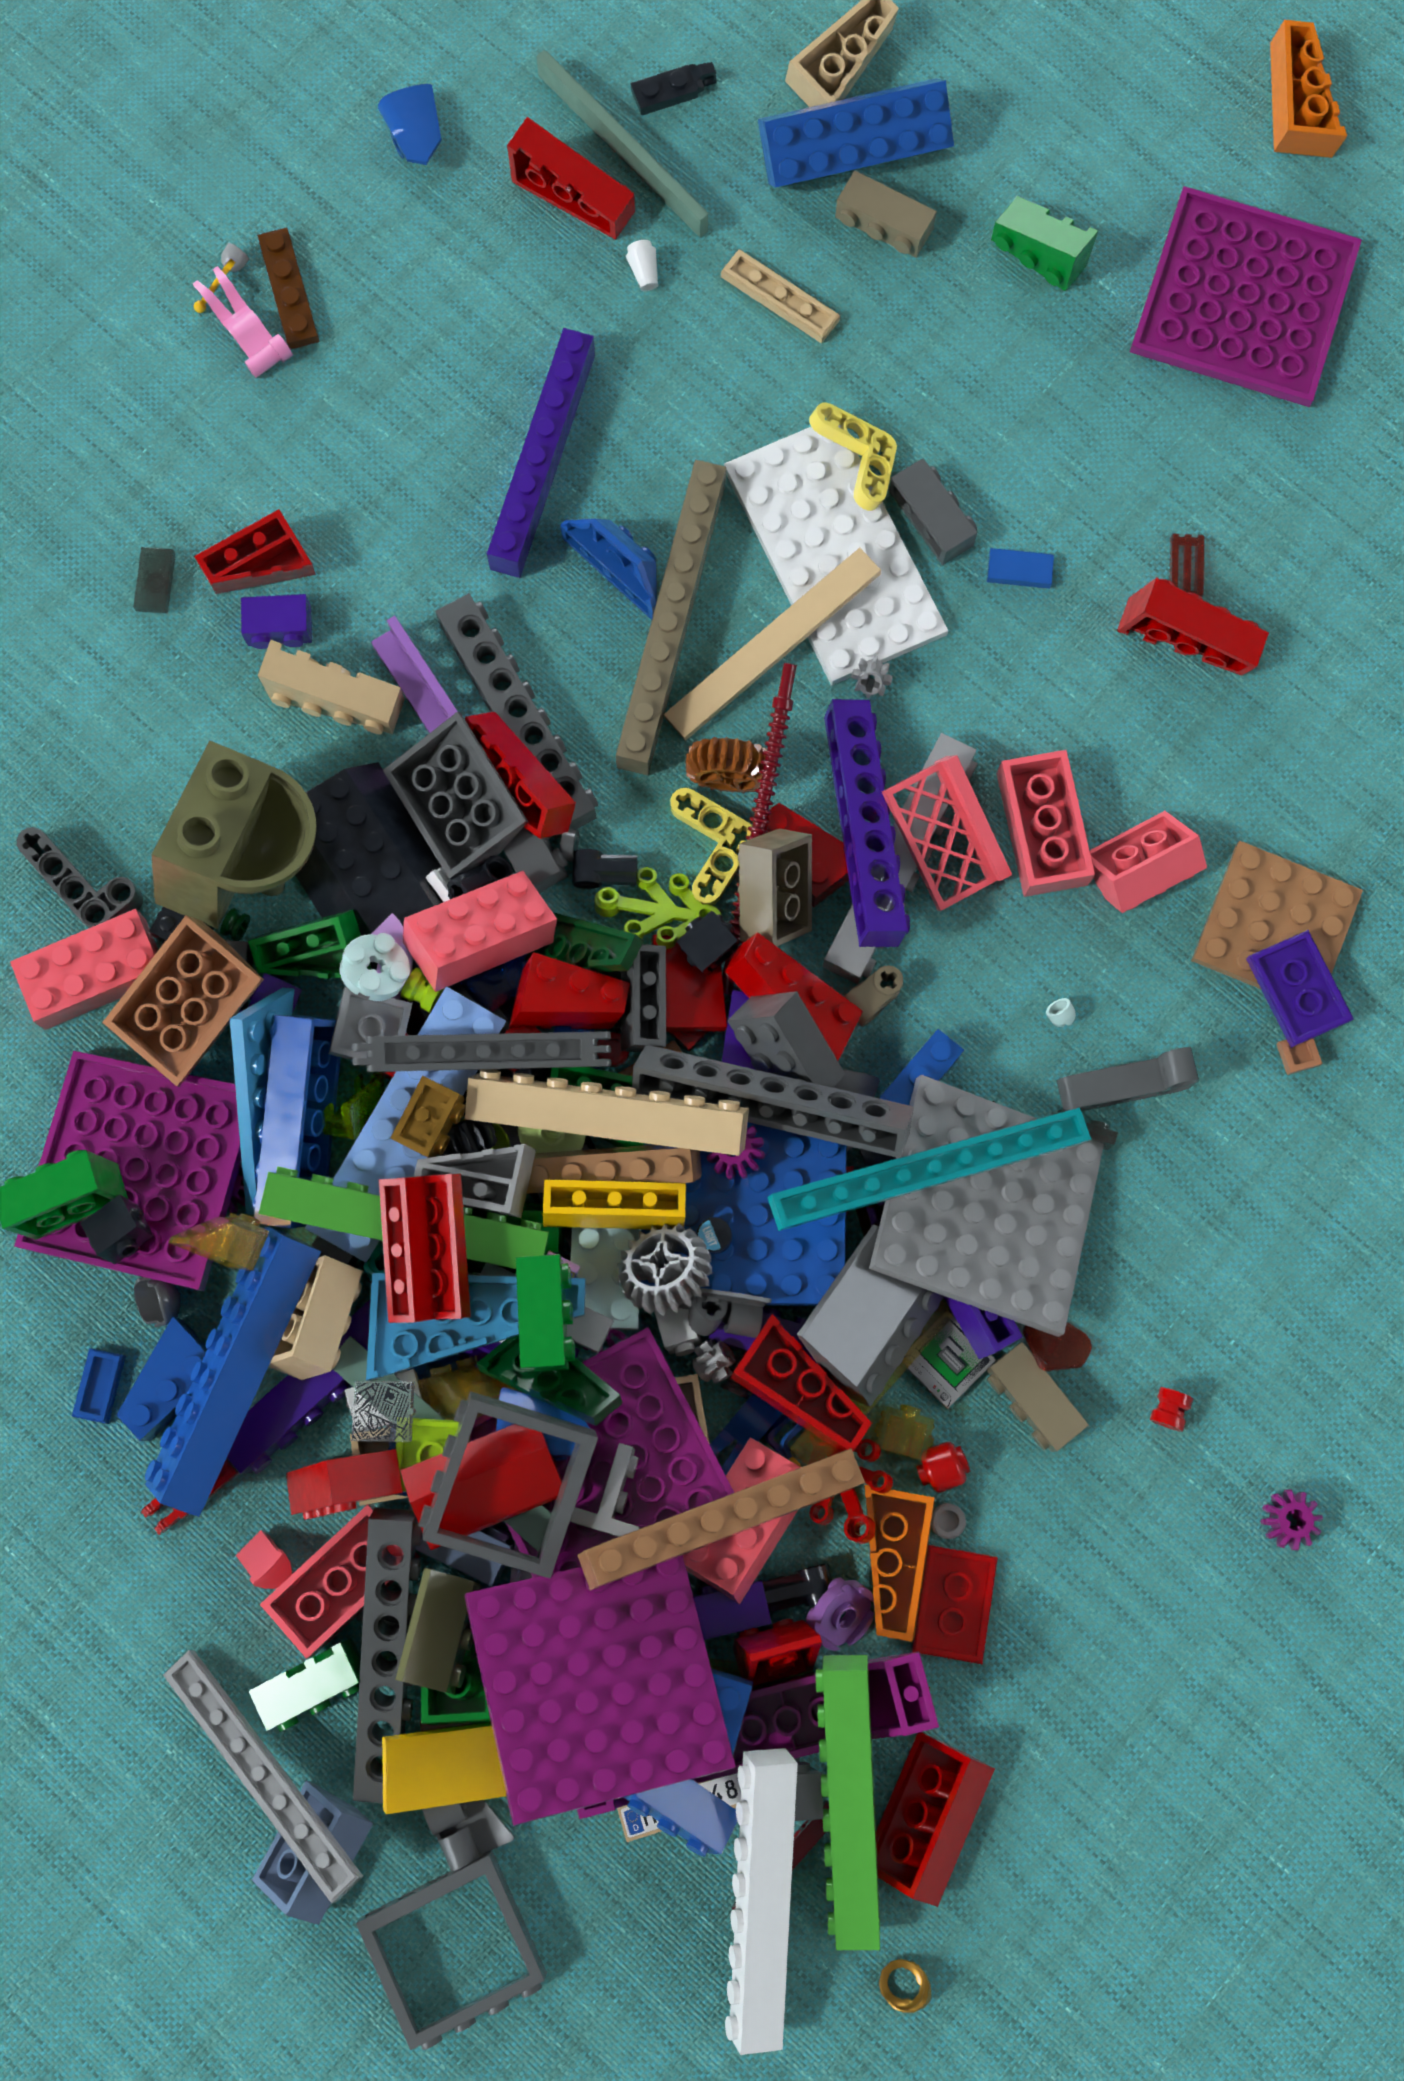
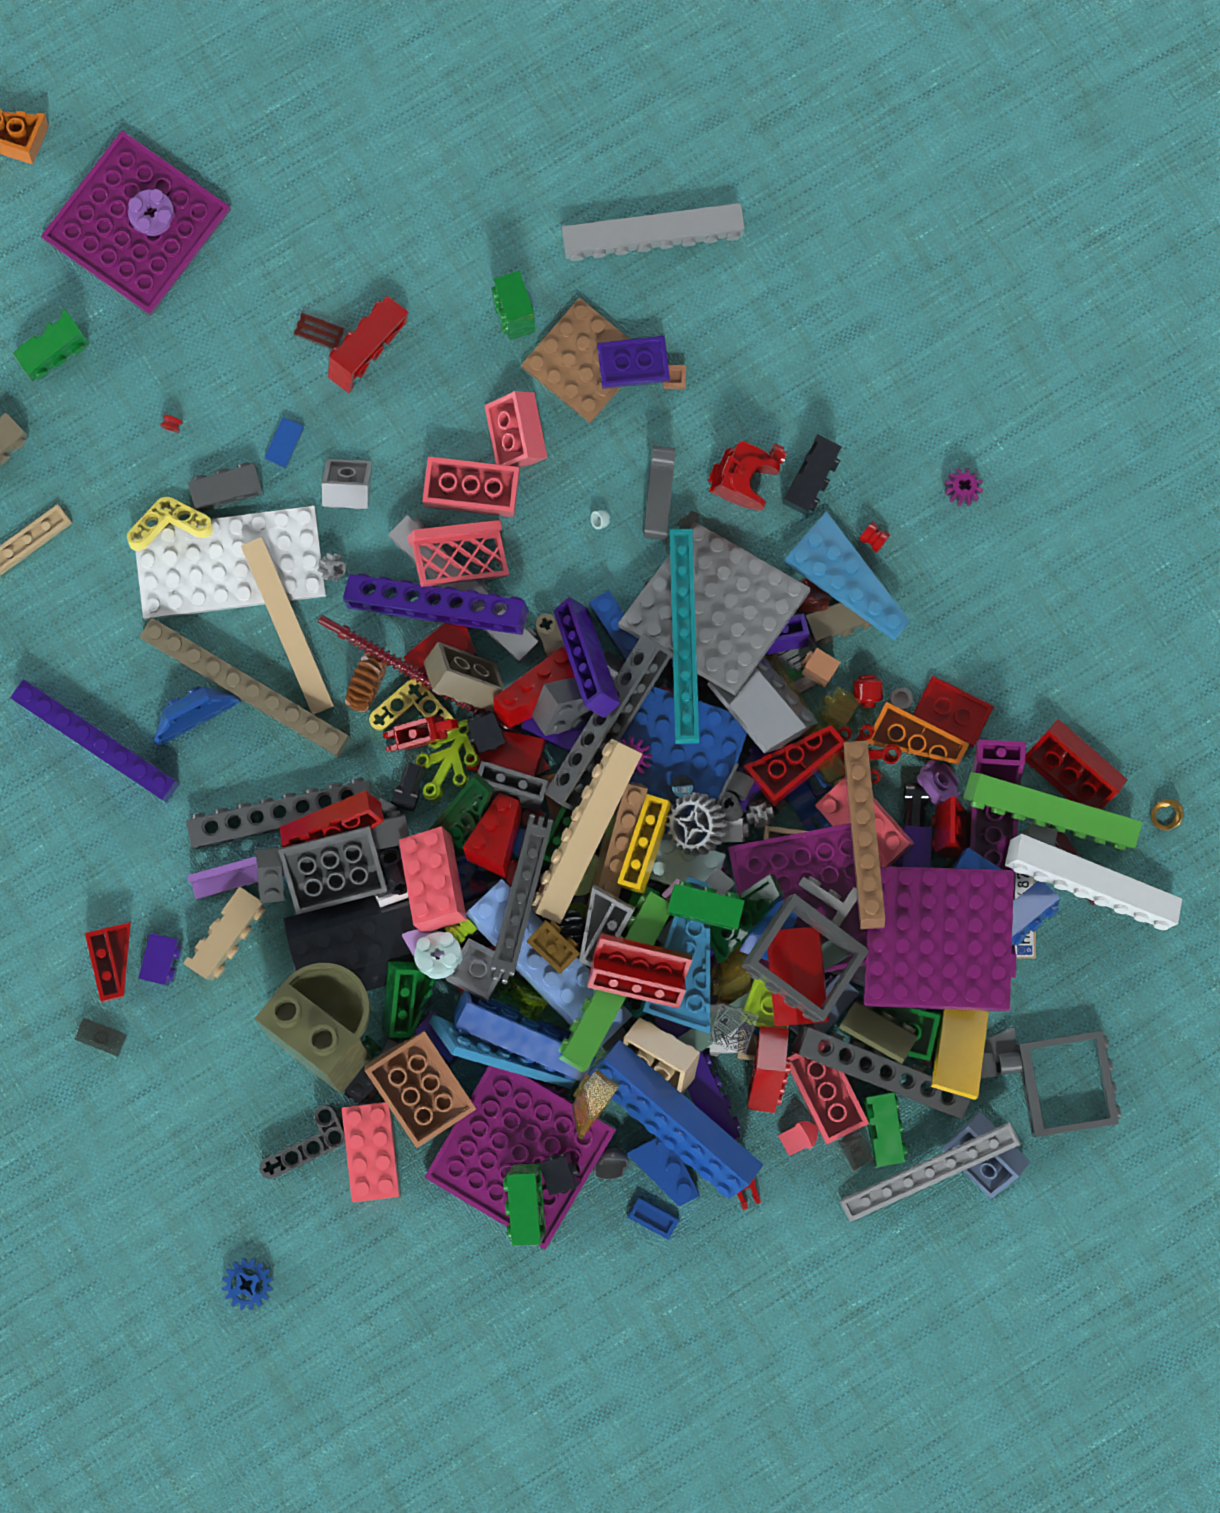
camera: 75 degrees left, 5 degrees up
(265, 1650) = (855, 1150): none -> clear smoke plate
(422, 716) = (269, 875): none -> dark grey brick
(681, 857) = (420, 733): none -> red hinge
(854, 1043) = (586, 657): none -> dark purple brick
(953, 1383) = (819, 667): none -> nougat brick
(992, 662) = (346, 483): none -> light grey slope
(994, 419) = (171, 423): none -> red bush
(1104, 1371) = (838, 569): none -> dark azure wing
(1201, 1178) = (734, 473): none -> red animal
(1229, 1292) = (813, 475): none -> black wedge
(1268, 288) = (151, 199): none -> medium lavender plate
(1318, 797) = (513, 305): none -> green brick

